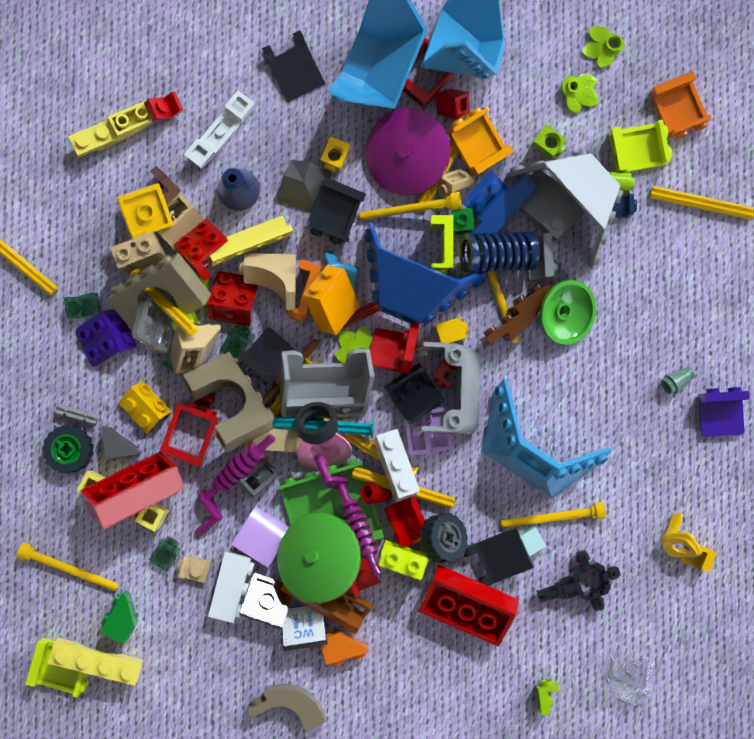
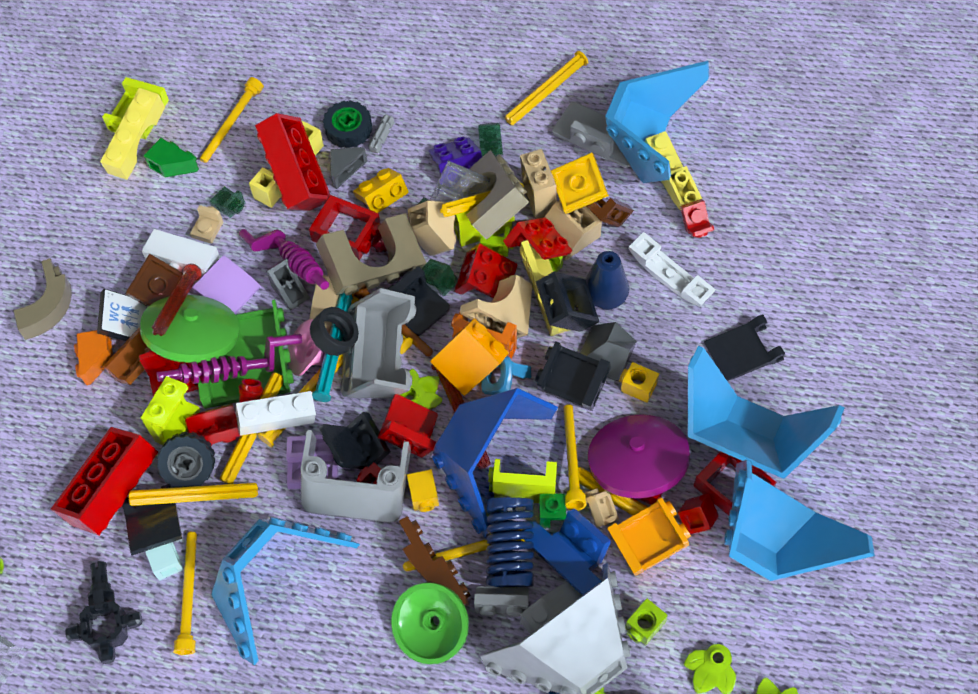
camera: 100 degrees right, 25 degrees down
(57, 160) = (644, 109): none -> dark azure piece
(66, 202) = (588, 130): none -> light grey bracket
(276, 215) = (566, 295): none -> black window
(295, 573) = (191, 273): none -> clear red axle
(472, 527) = (192, 494): none -> yellow axle

